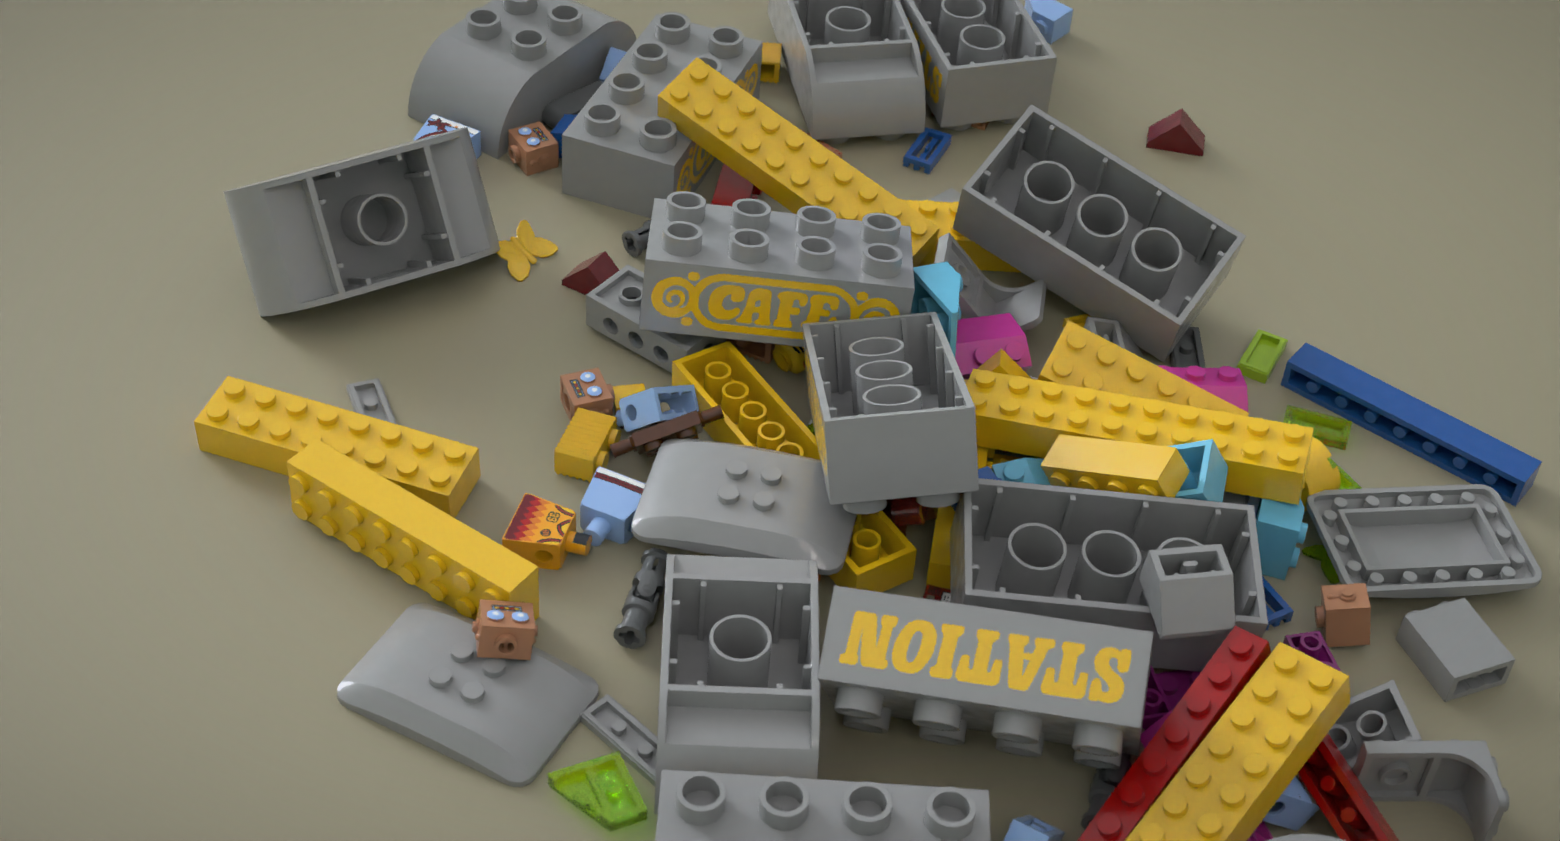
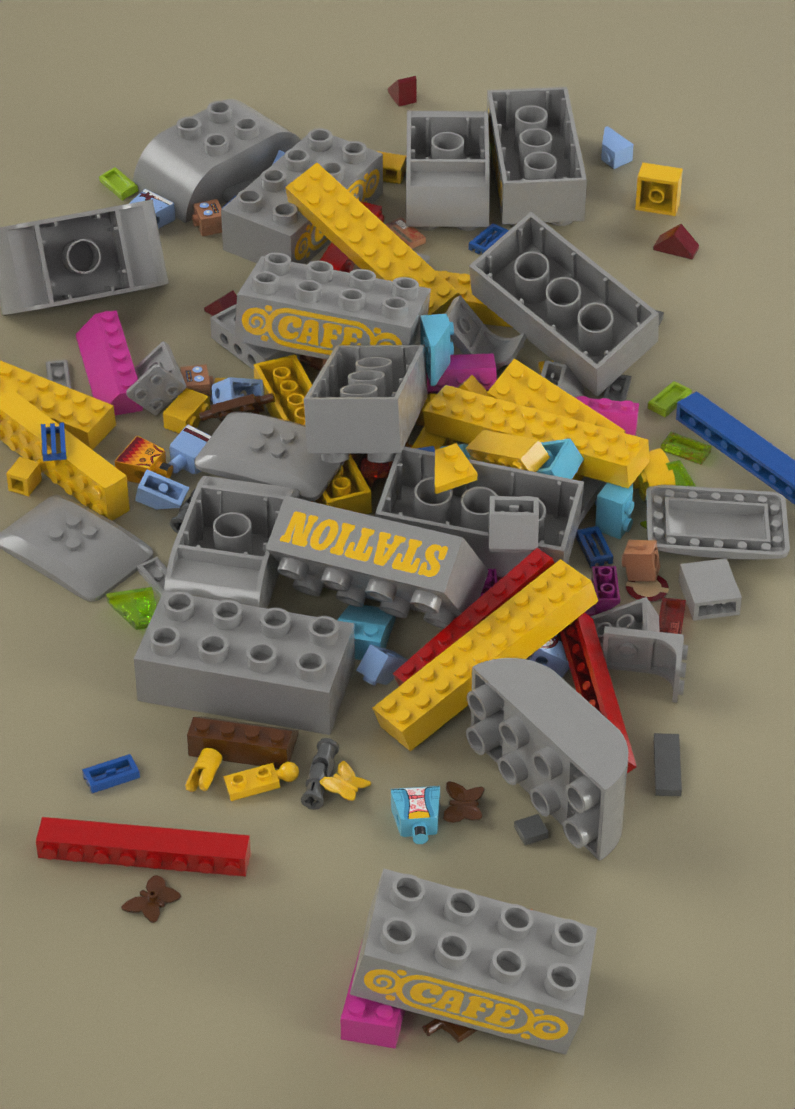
camera: 15 degrees right, 0 degrees up
(360, 578) = (24, 476): none -> yellow brick
(387, 110) = (118, 183): none -> lime tile
(402, 501) = (52, 430): none -> blue tile
(448, 378) = (108, 361): none -> dark pink slope
(504, 629) = (99, 511): nougat head -> none
(522, 249) = (183, 285): yellow piece -> none
(531, 397) = (157, 380): none -> light grey bracket
(588, 583) = (160, 491): none -> light blue slope
(985, 768) = (370, 627): none -> medium azure slope
(1058, 506) = (452, 468): none -> yellow wing
(1131, 65) = (658, 189): none -> yellow brick
(1362, 660) = (651, 589): none -> sticker
(1419, 700) = (671, 615): none -> clear red tile

